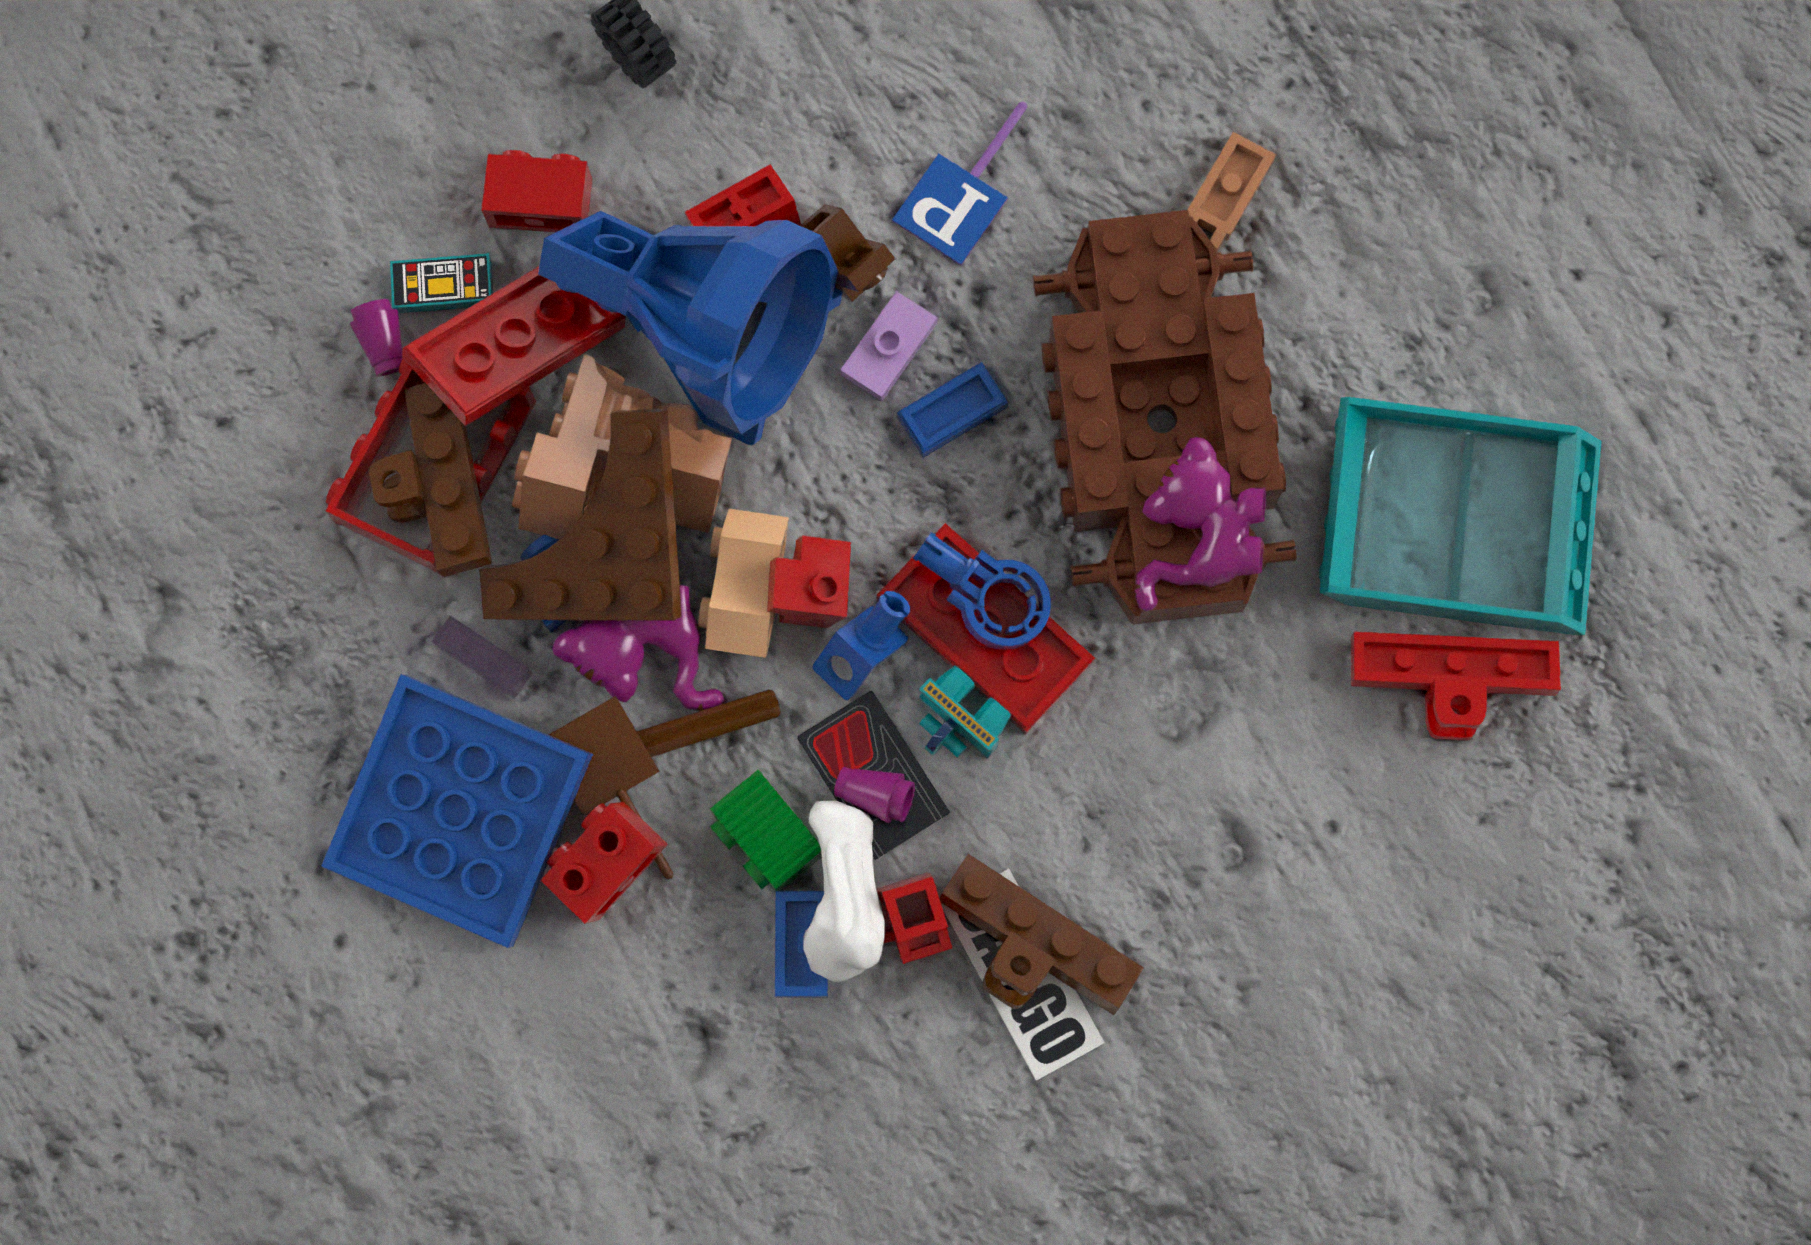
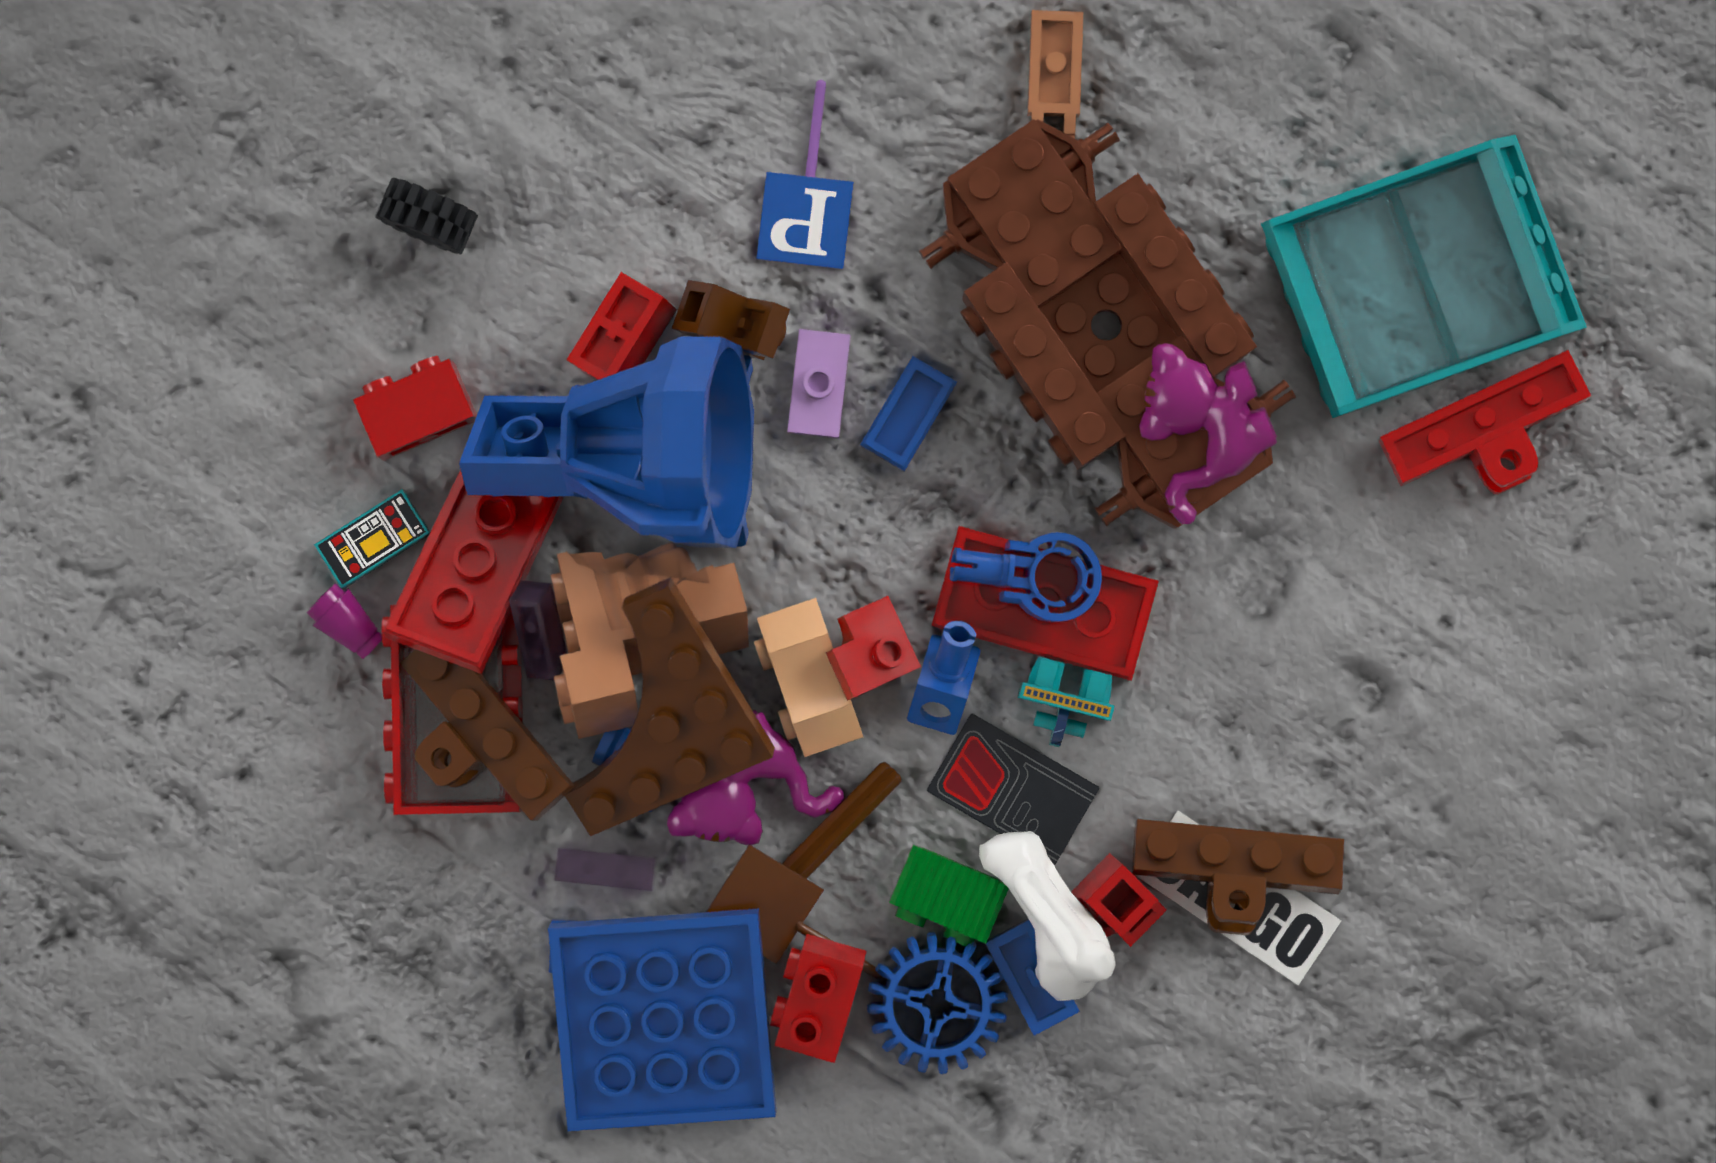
camera: 25 degrees left, 10 degrees up
(536, 408) = (538, 629): none -> clear purple piece
(688, 941) = (927, 1045): none -> blue gear
(876, 792) = (1027, 807): magenta cone -> none

